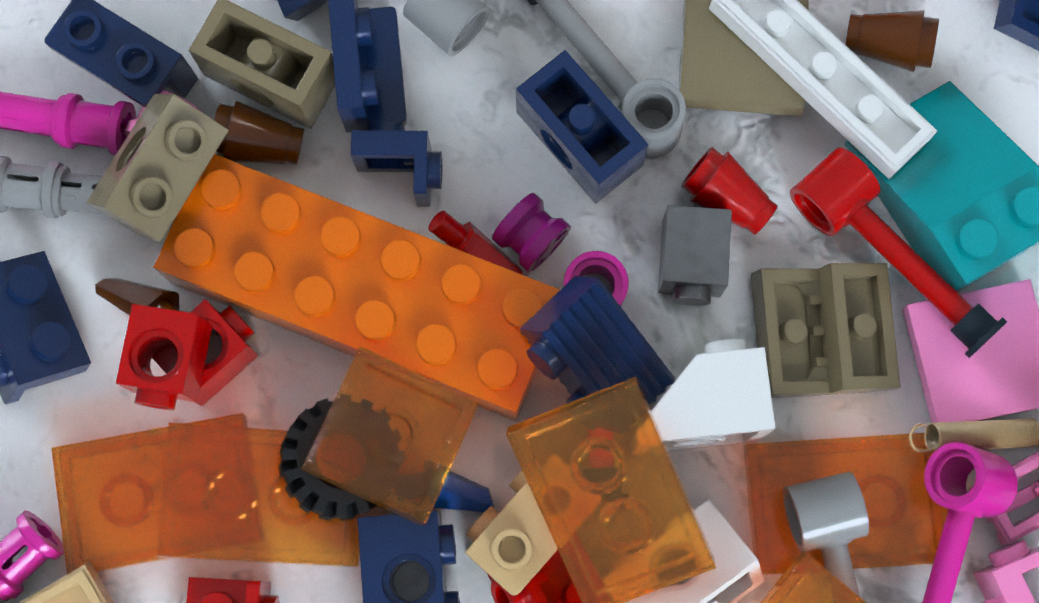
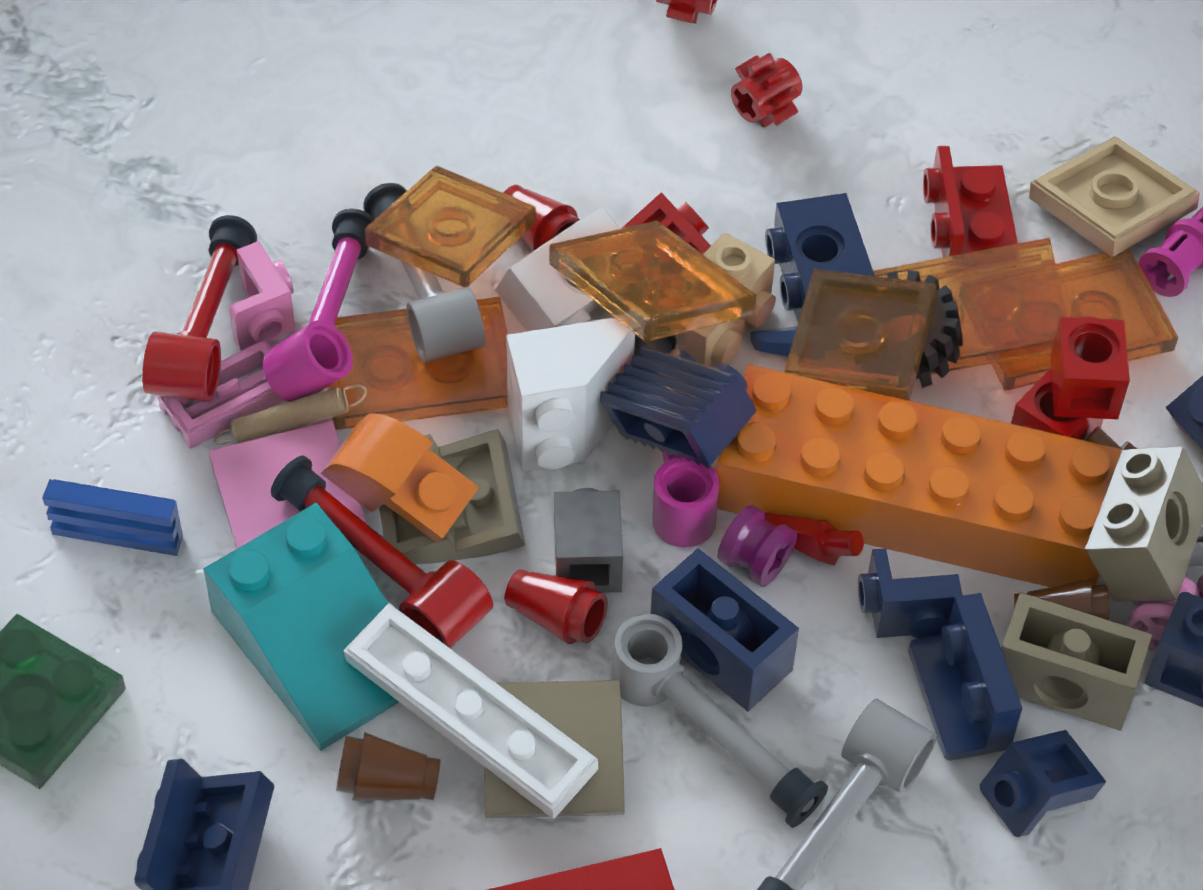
camera: 170 degrees right, 25 degrees down
(896, 309) = (395, 467): none -> orange brick

